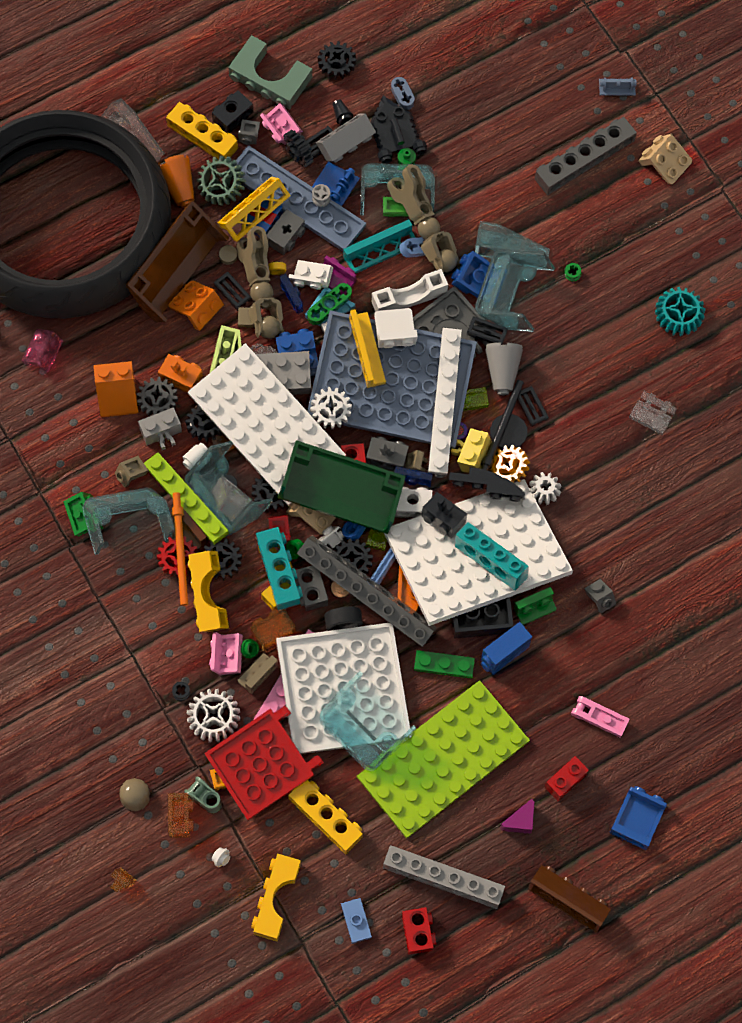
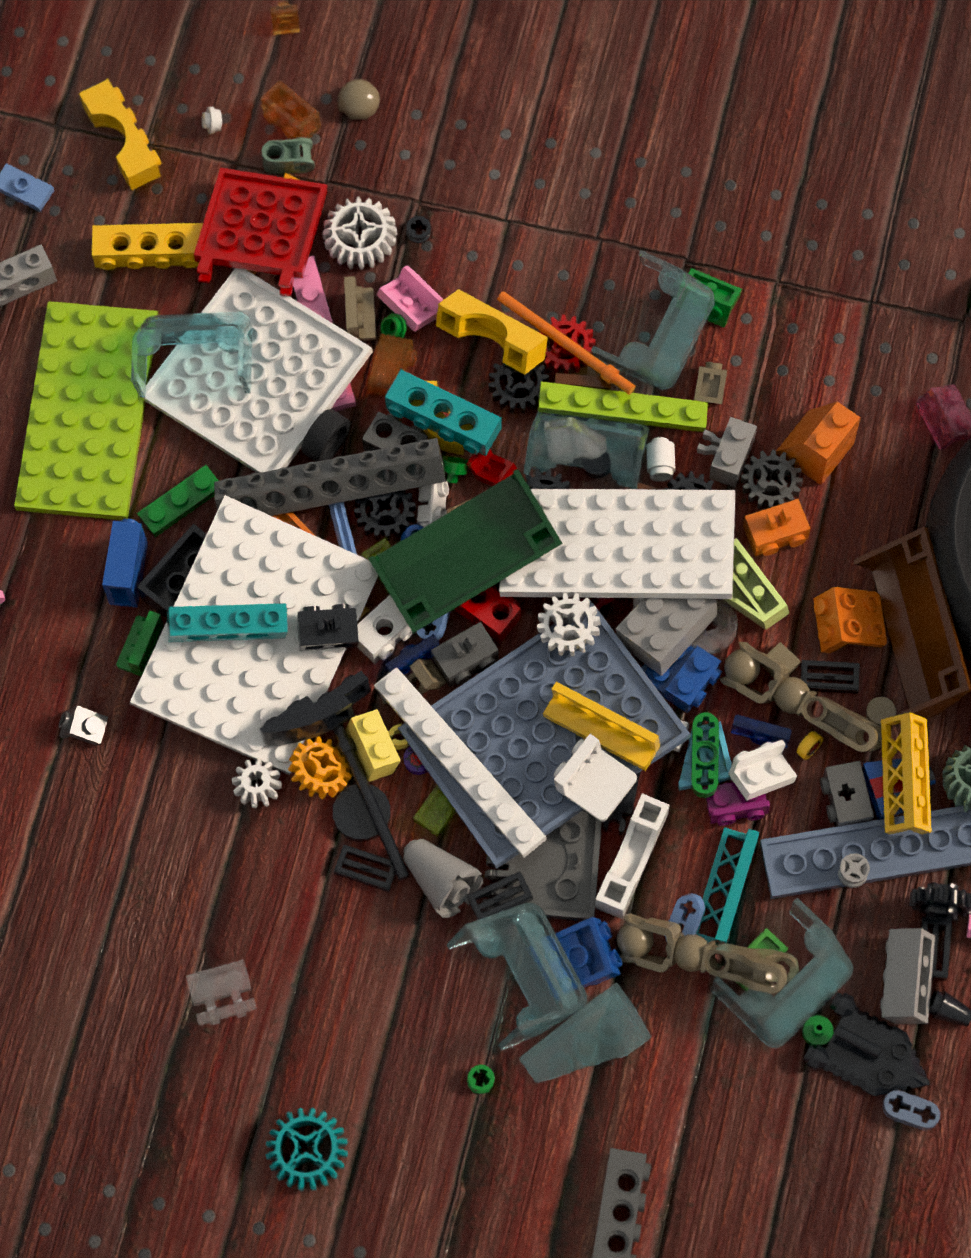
camera: 140 degrees right, 0 degrees up
(339, 182) = (860, 913): blue hinge -> none

